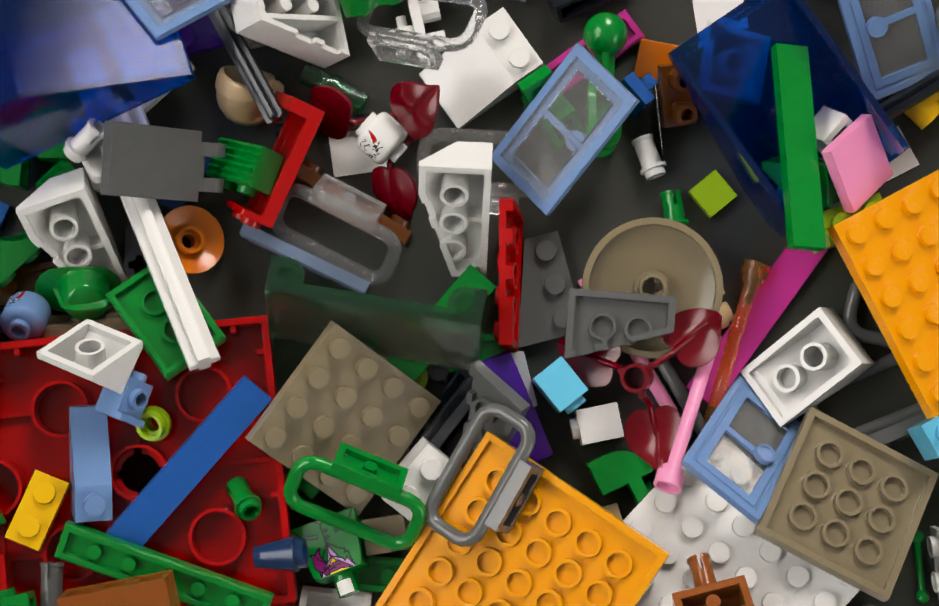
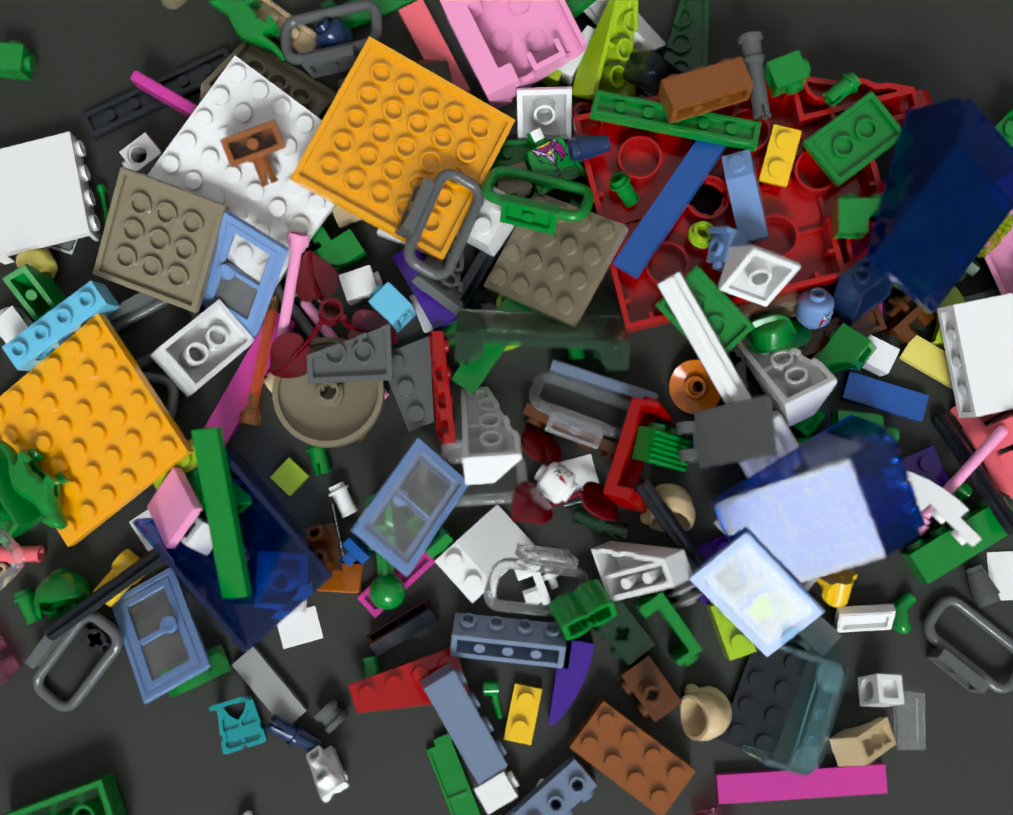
camera: 175 degrees right, 0 degrees up
(79, 146) = (793, 438): white pin -> none

